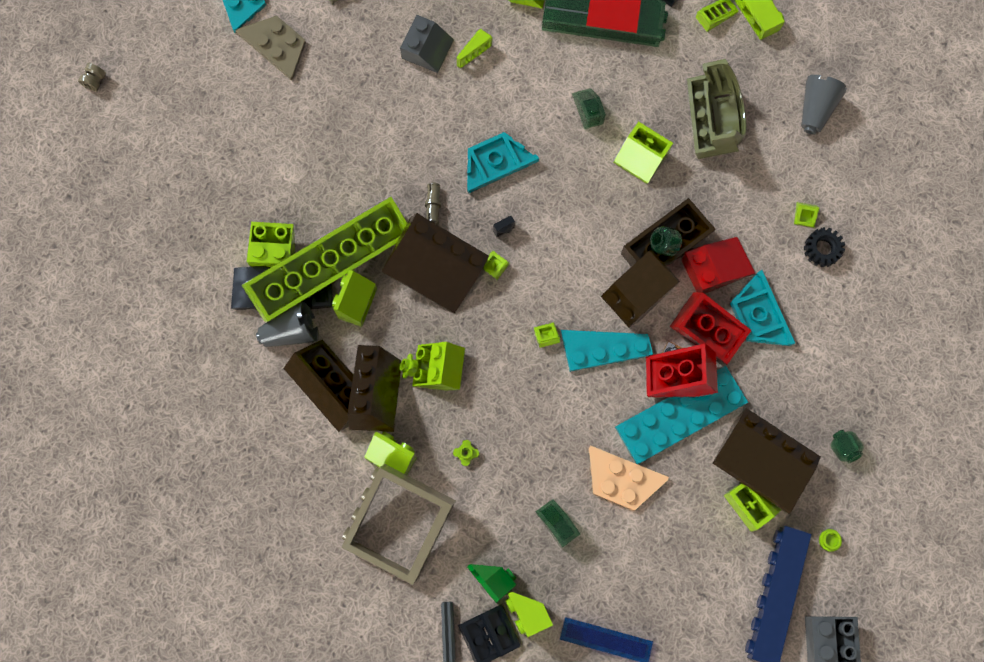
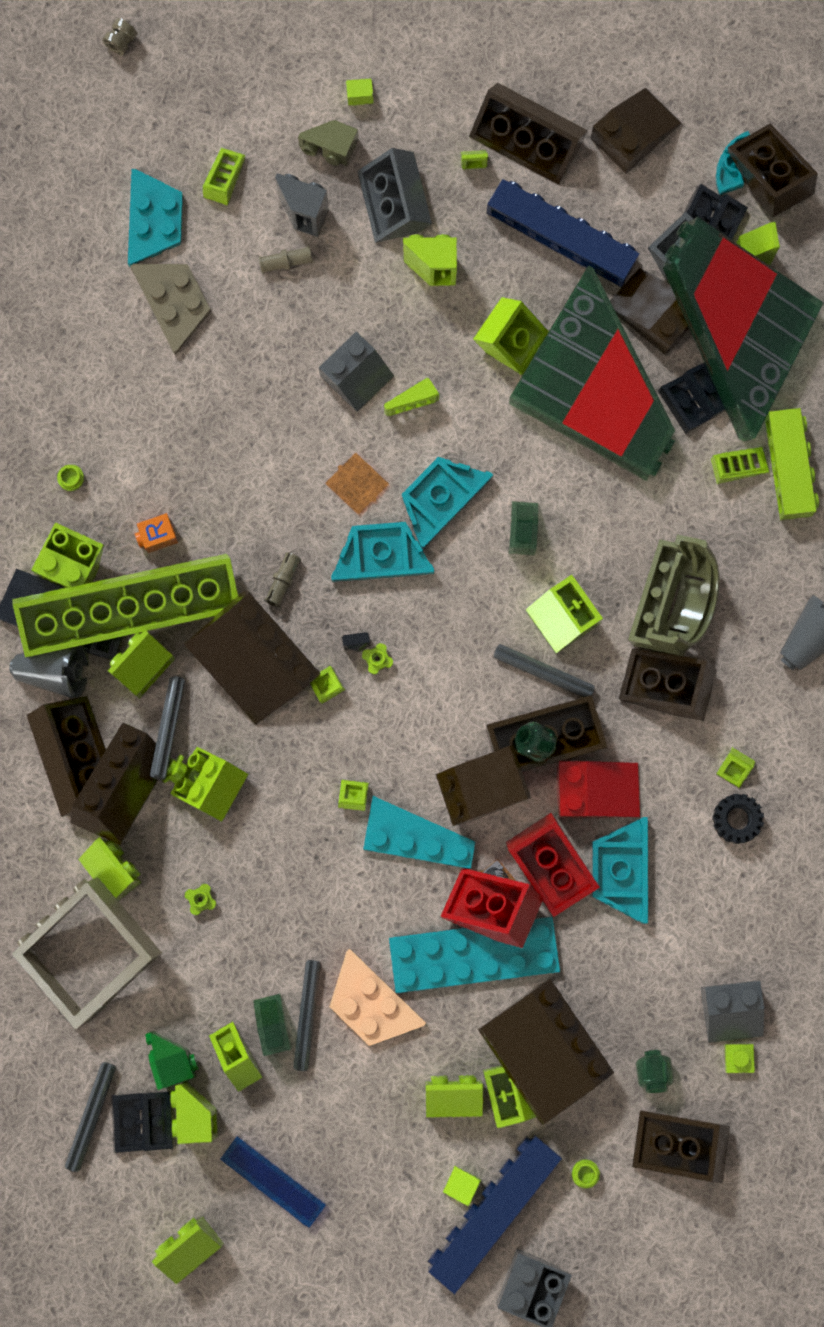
camera: 25 degrees right, 5 degrees up
(249, 190) = (70, 477): none -> lime plate
(328, 205) = (156, 533): none -> orange brick
(392, 338) = (167, 728): none -> dark grey axle
(458, 120) = (357, 483): none -> clear orange piece
(521, 106) = (440, 496): none -> teal wing
(523, 239) = (380, 651): none -> lime plate
(540, 557) = (235, 1057): none -> lime slope
(579, 507) = (307, 1015): none -> dark grey axle
(643, 198) = (543, 671): none -> dark grey axle
(713, 523) = (454, 1098): none -> lime slope
(735, 173) = (668, 683): none -> dark brown slope
(746, 585) = (461, 1185): none -> lime slope
(882, 381) = (733, 1011): none -> dark grey slope
(889, 492) = (681, 1147): none -> dark brown slope
(900, 413) = (739, 1058): none -> lime plate

